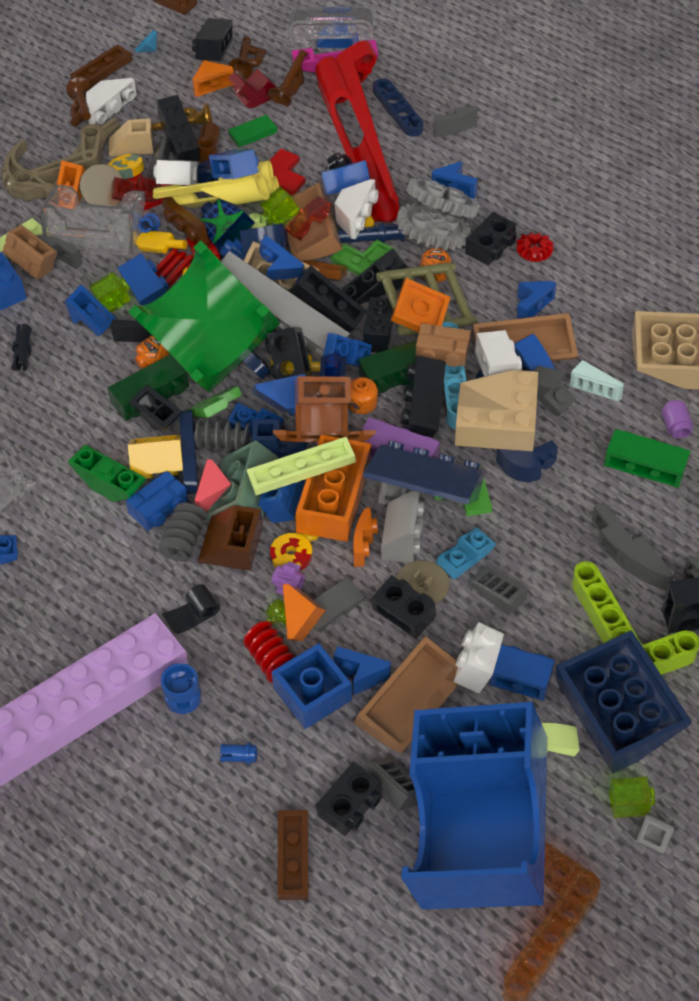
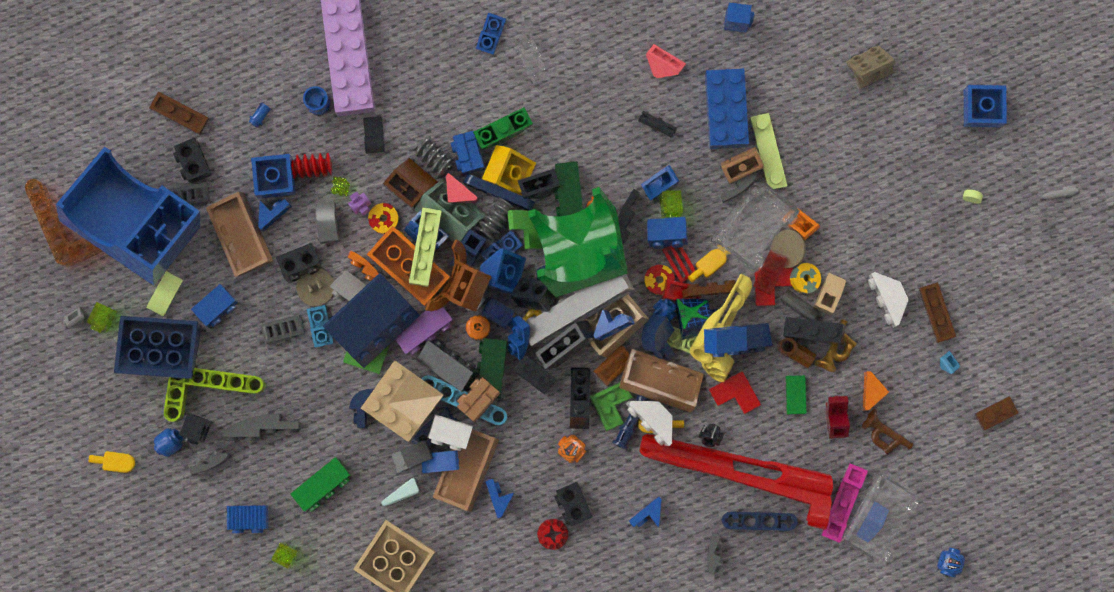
camera: 120 degrees right, 30 degrees up
(41, 180) = (837, 257): dark tan piece -> none
(77, 90) = (899, 274): reddish brown piece -> none
(153, 220) = (733, 269): blue pin -> none
(176, 172) = (758, 303): white slope -> none
(213, 39) = (912, 412): black brick -> none
(279, 207) = (686, 366): clear neon green brick -> none
(289, 87) = (821, 436): reddish brown piece -> none
(300, 613) = (328, 196): orange slope -> none
(315, 211) = (654, 374): clear red slope -> none
(345, 176) = (690, 437): blue slope -> none
(419, 305) = (518, 403): orange plate -> none
(428, 273) = (558, 412): olive bar -> none
(432, 226) = (615, 480): light grey gear -> none
(442, 197) = (622, 499): light grey gear -> none
(478, 657) = (234, 283): white brick -> none
(677, 419) = (341, 527): medium lavender brick -> none

